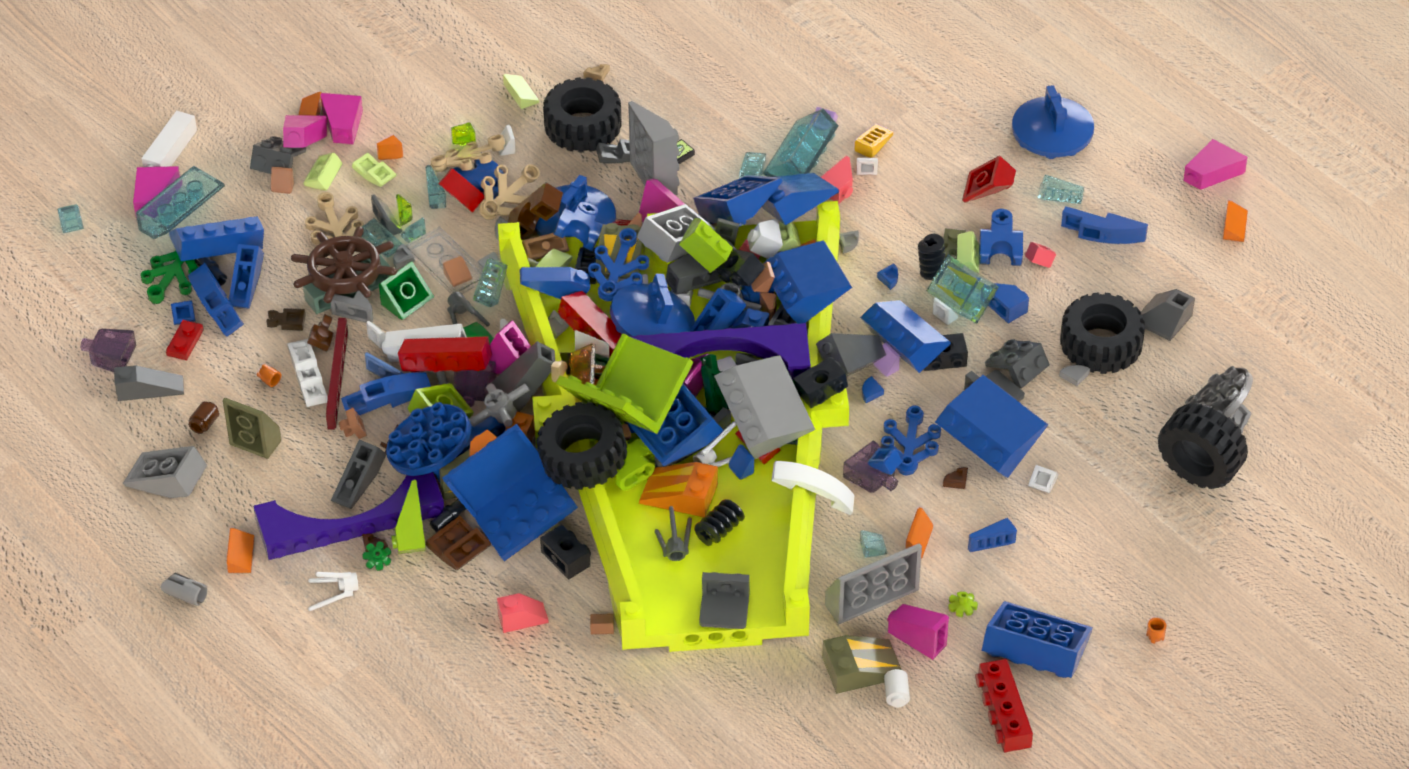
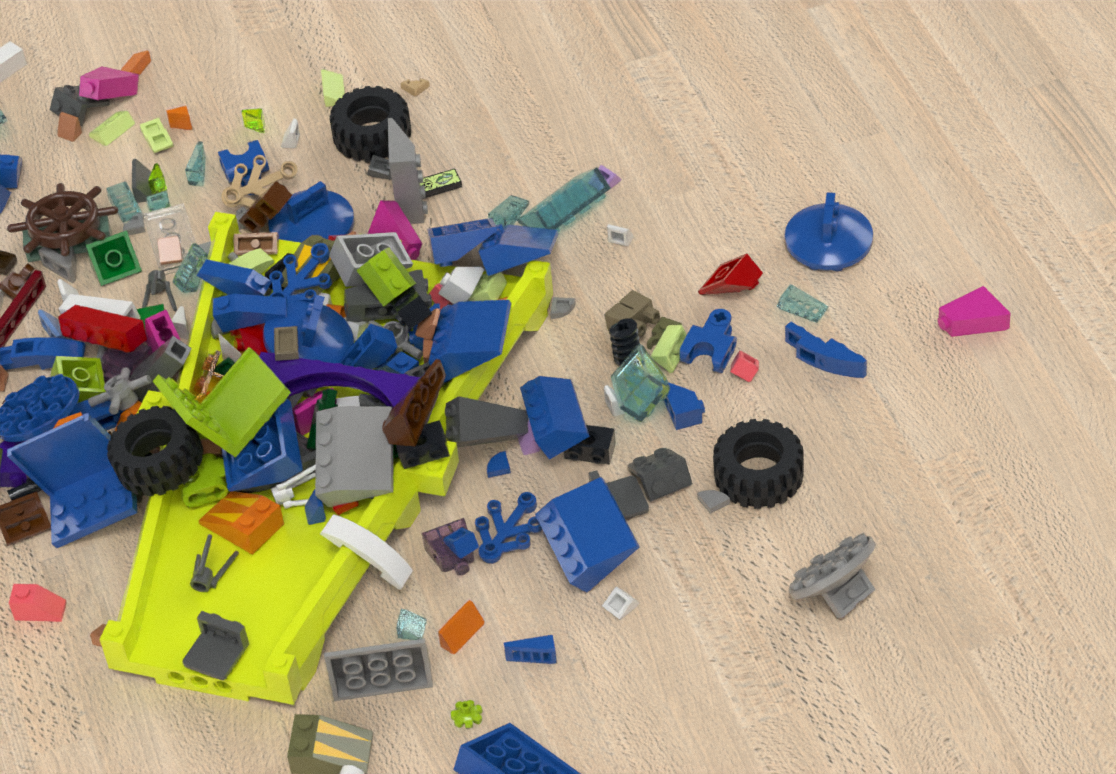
camera: 25 degrees right, 0 degrees up
(325, 203) = (96, 158): tan plant -> none
(342, 115) = (156, 78): dark pink slope -> none
(462, 190) = (215, 170): red slope -> none
(467, 154) = (250, 139): tan plant -> none
(558, 368) = (183, 369): tan tile -> none
(565, 551) = (112, 553): black brick -> none
(580, 225) = (292, 228): blue piece -> none
(592, 303) = (245, 310): none -> blue slope
(648, 323) = (286, 343): none -> dark tan tile
(719, 522) = (256, 562): black piece -> none
(727, 230) = (425, 269): dark grey slope -> none
(804, 355) = (411, 412): none -> reddish brown wedge
(840, 177) = (582, 243): coral slope -> none
(863, 145) = (631, 213): yellow slope -> none
(889, 276) = (582, 352): blue tile -> none
(916, 228) = (635, 307): none -> dark tan hips
(920, 629) = (402, 730): dark pink slope -> none
(956, 479) = (533, 580): reddish brown tile -> none
(1168, 313) = (839, 460): dark grey slope -> none
(1202, 445) = (787, 611): black tyre -> none
(1235, 222) = (966, 379): orange slope -> none

